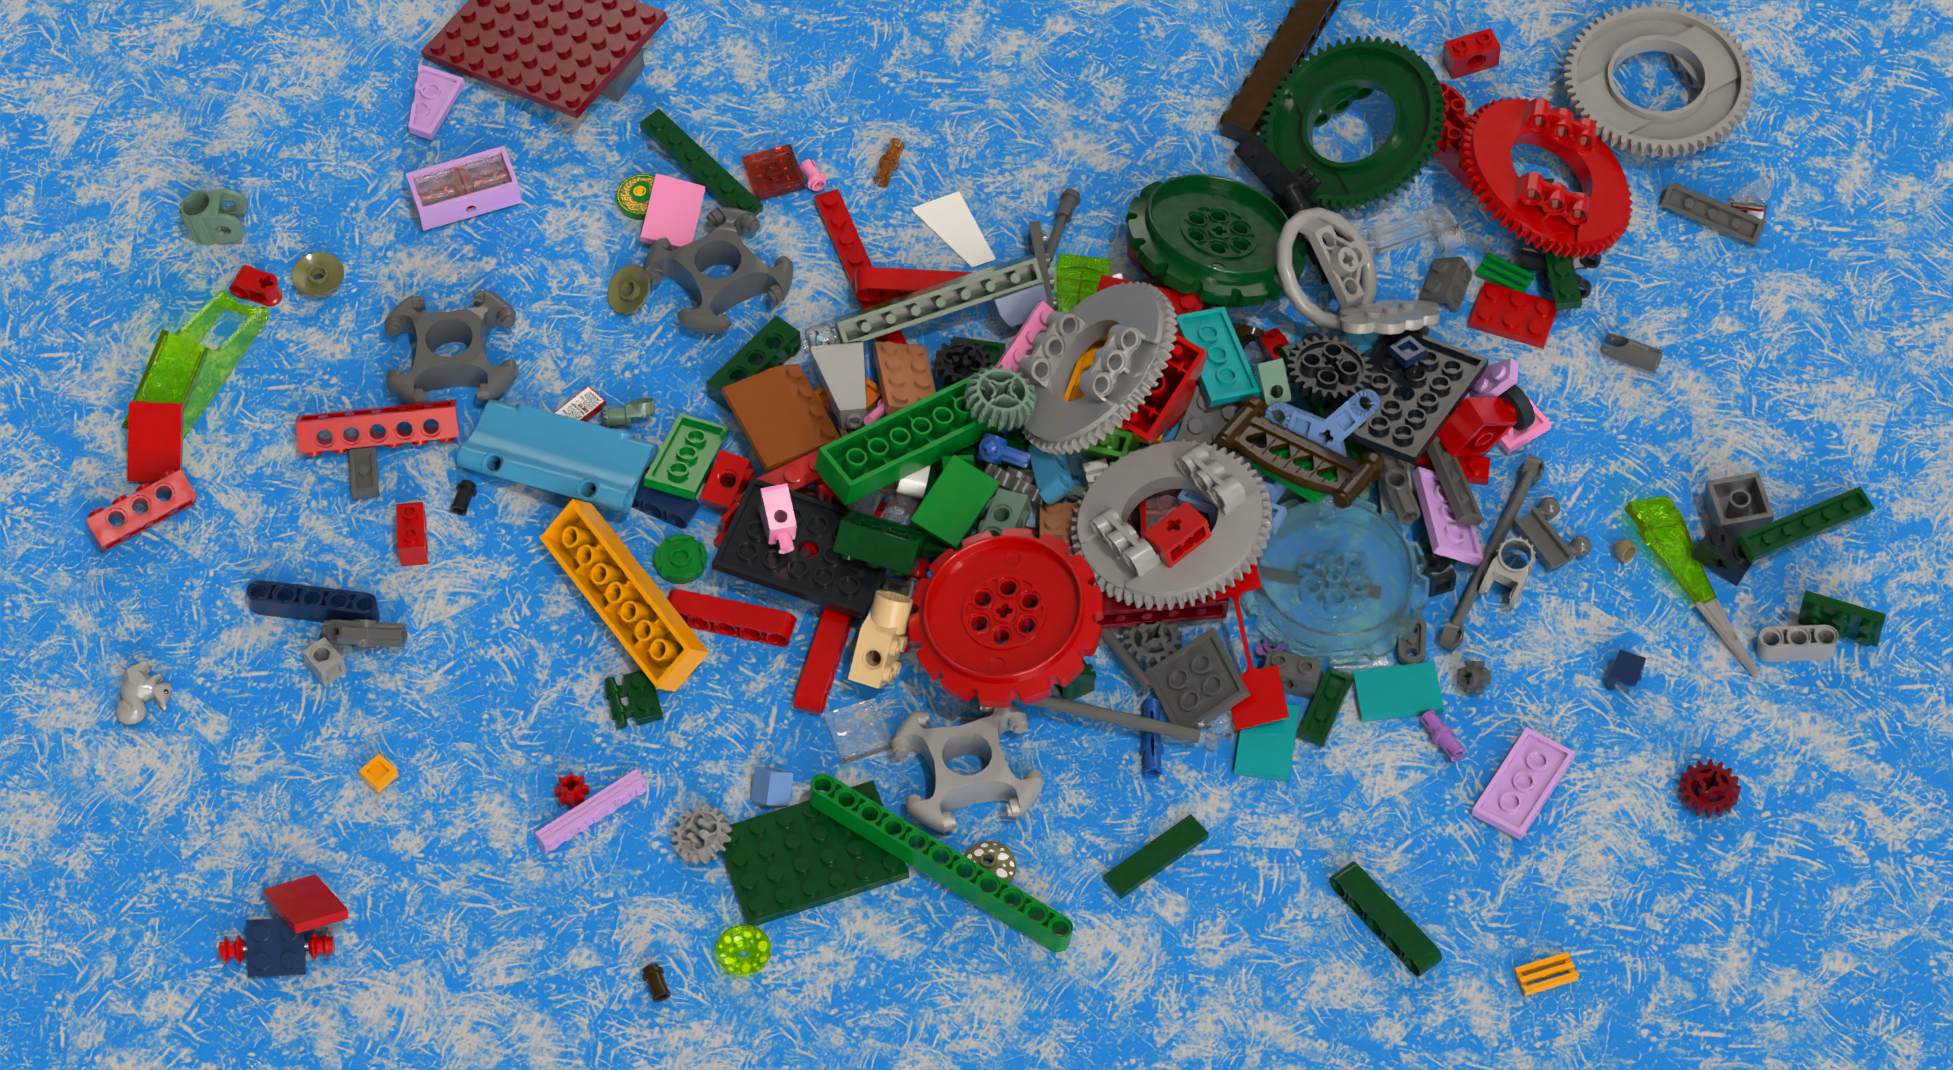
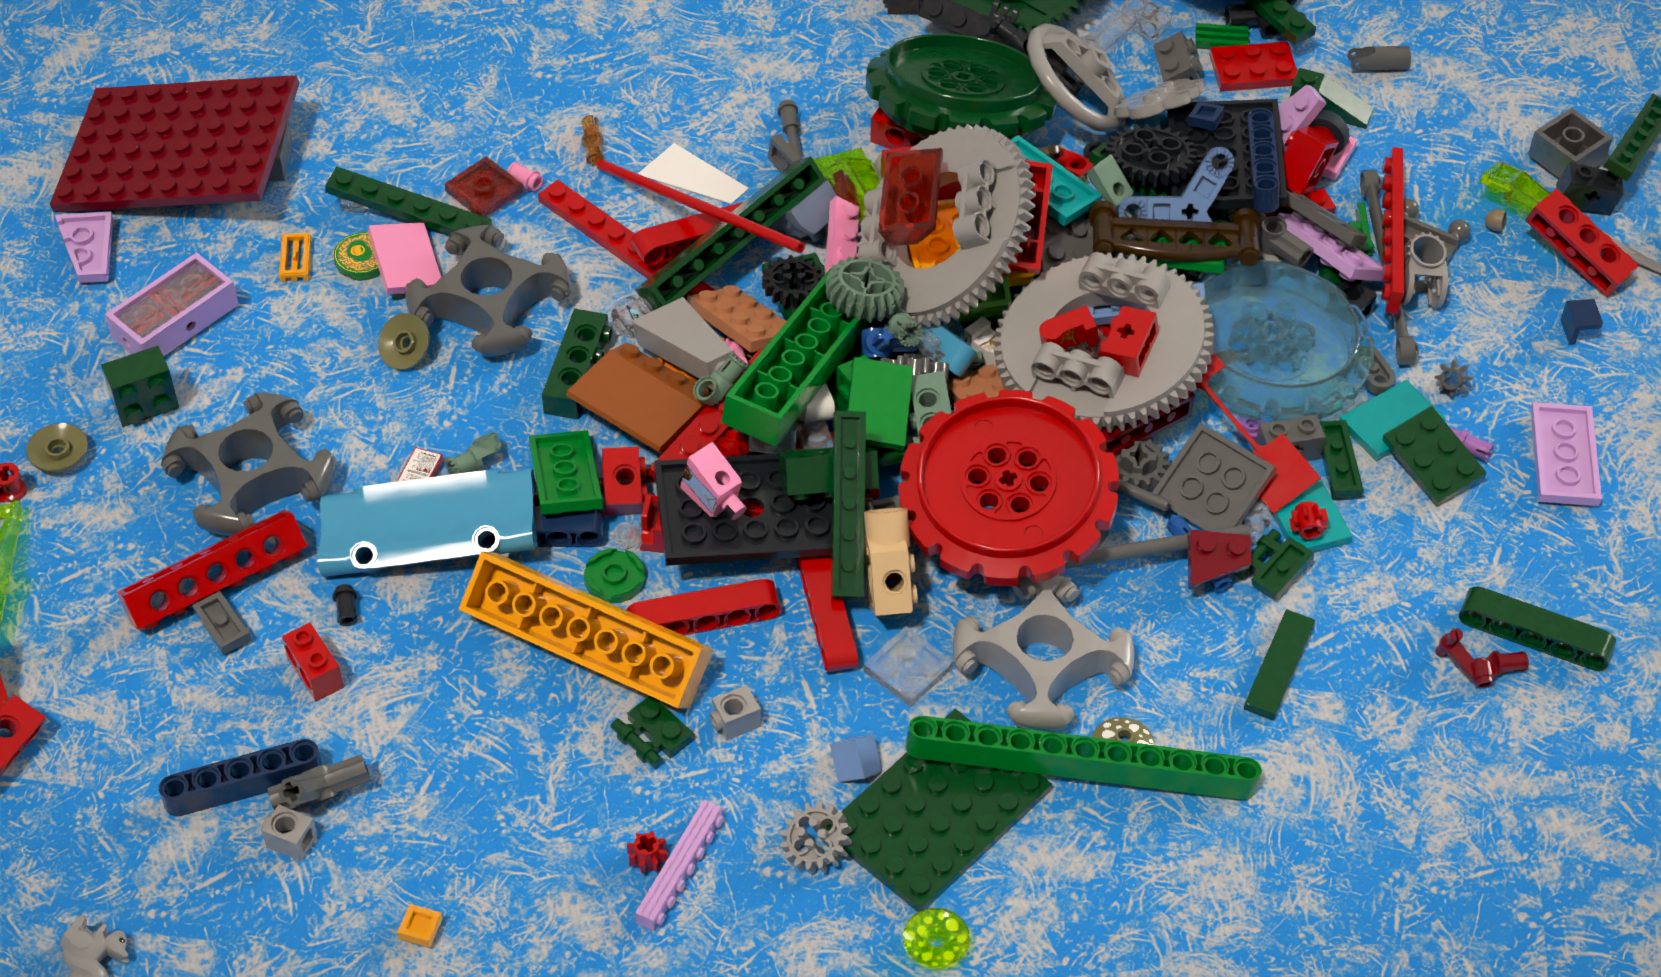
camera: 30 degrees left, 5 degrees down
(403, 247) = (140, 386): none -> dark green brick
(581, 192) = (295, 273): none -> light orange tile
(706, 720) = (736, 701): none -> light grey brick
(707, 530) = (627, 535): none -> clear plate
(841, 427) = (721, 379): none -> sand green connector
(872, 576) = (848, 504): none -> dark green plate
(922, 265) = (702, 206): none -> red piece
(1011, 445) = (902, 325): none -> sand green connector
(1030, 466) = (930, 346): none -> clear plate
(1058, 295) = (845, 187): none -> clear red plate
(1071, 330) = (910, 195): none -> clear red slope
(1139, 503) = (1070, 329): none -> red leg
(1155, 745) = (1216, 555): none -> dark red wing
(1209, 778) = (1281, 568): none -> dark green plate
(1254, 748) = (1308, 520): none -> red gear
(1314, 932) = (1480, 670): none -> dark red pin
(1405, 738) = (1434, 456): none -> dark green plate
(1416, 415) = (1263, 160): none -> dark blue beam
(1497, 508) = (1362, 225): none -> green piece
(1514, 515) = (1394, 230): none -> red plate
(1553, 373) = (1338, 99): none -> slope
(1681, 642) = (1581, 242): none -> red brick

